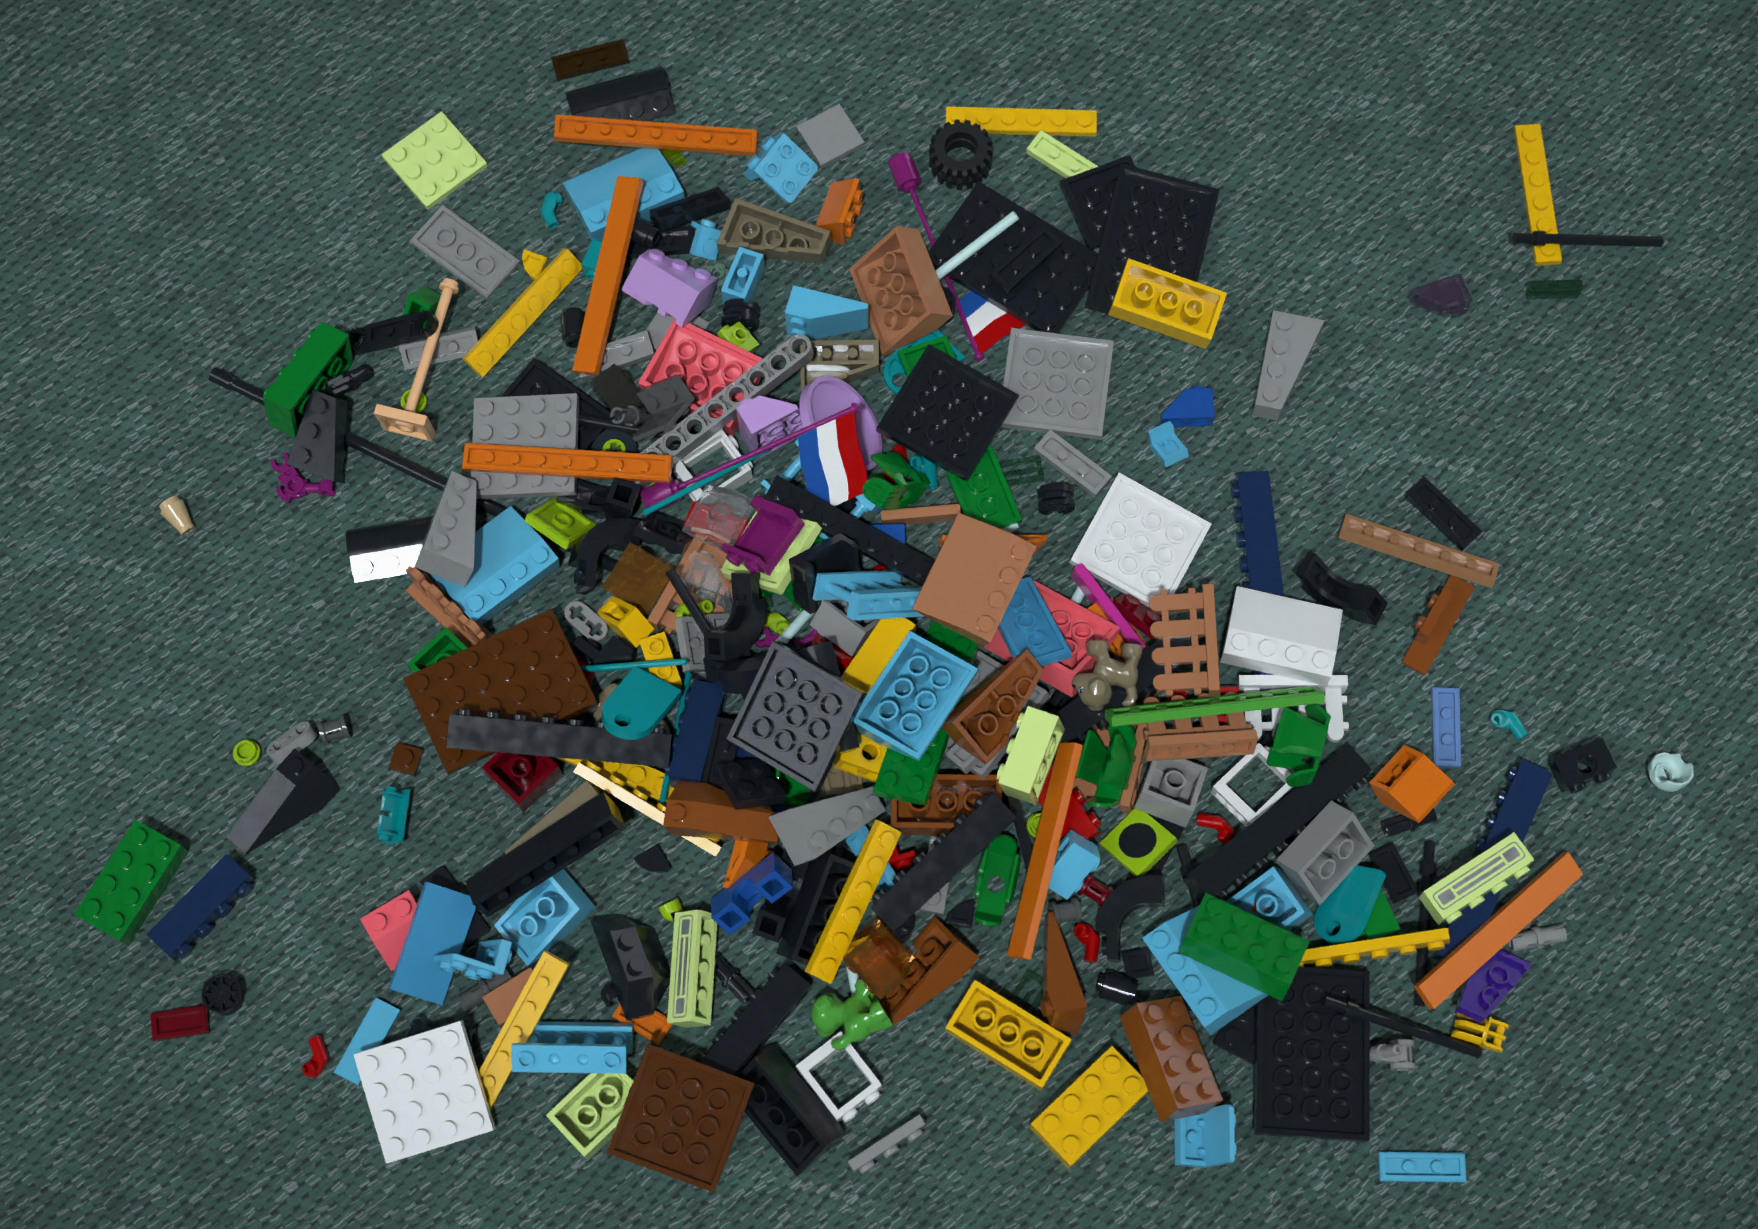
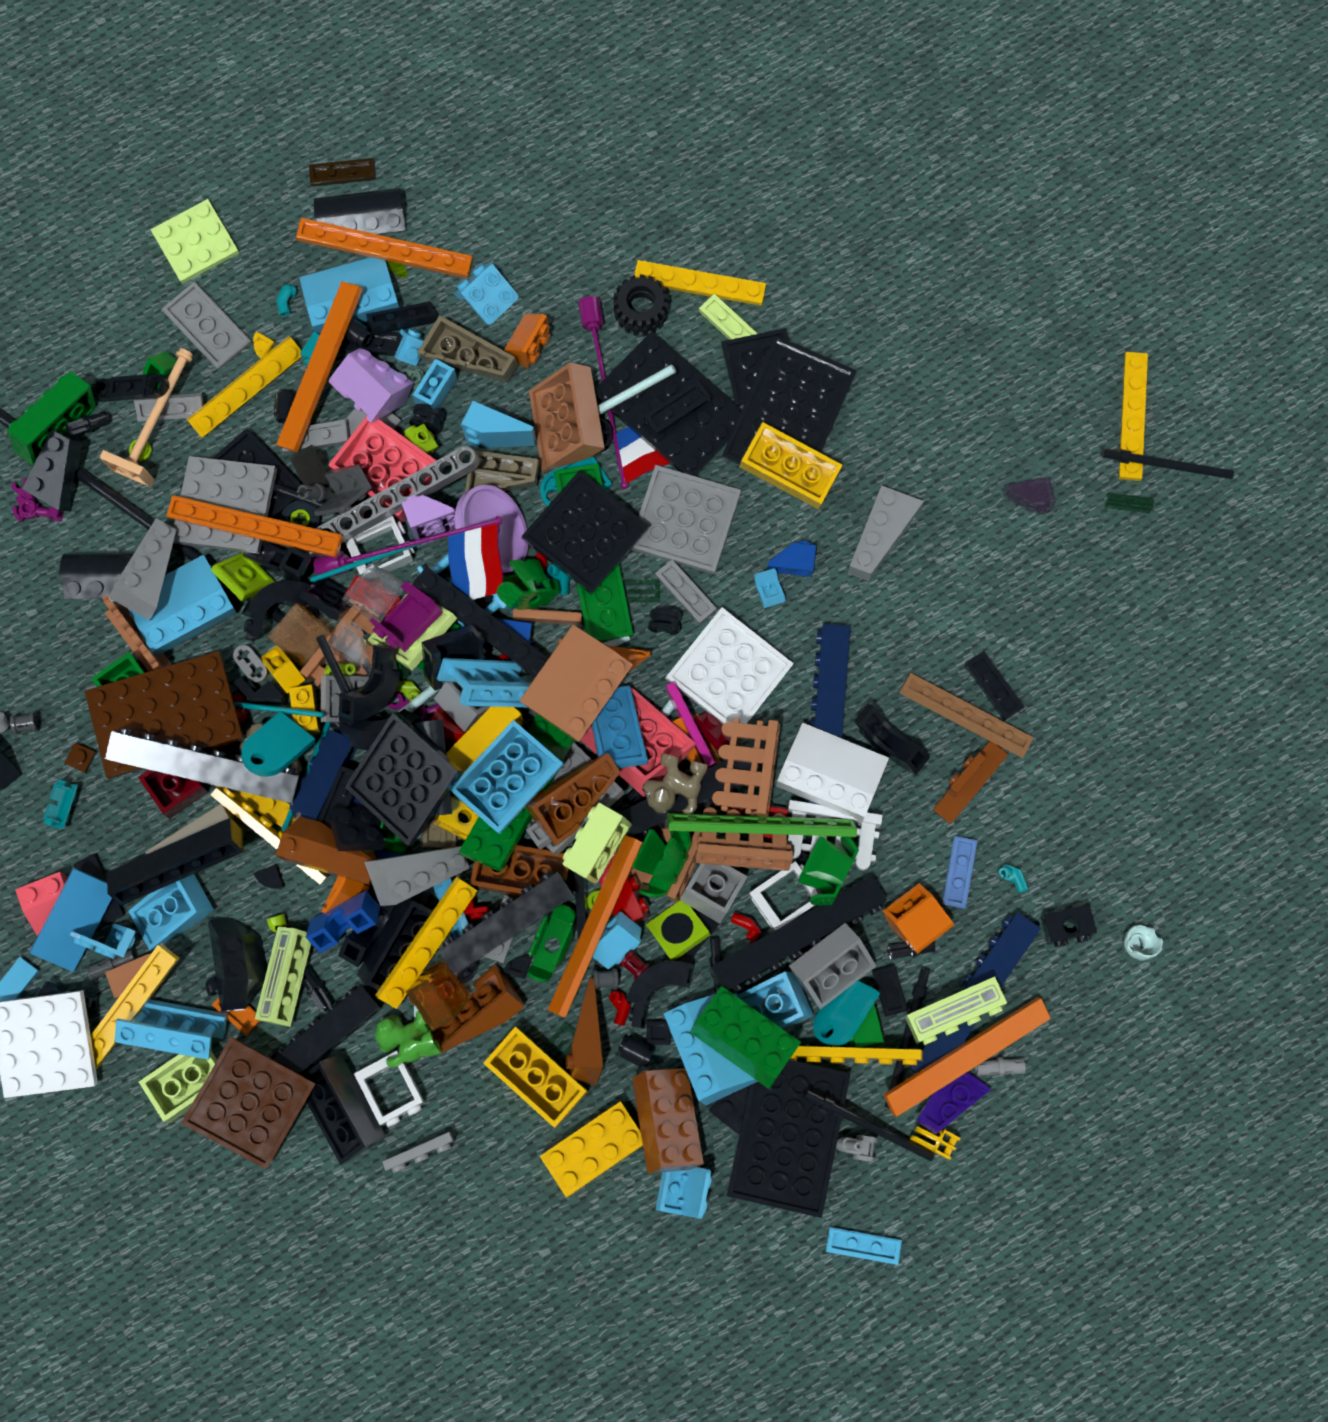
camera: 10 degrees right, 5 degrees up
(830, 136) = (534, 271): light grey tile -> none

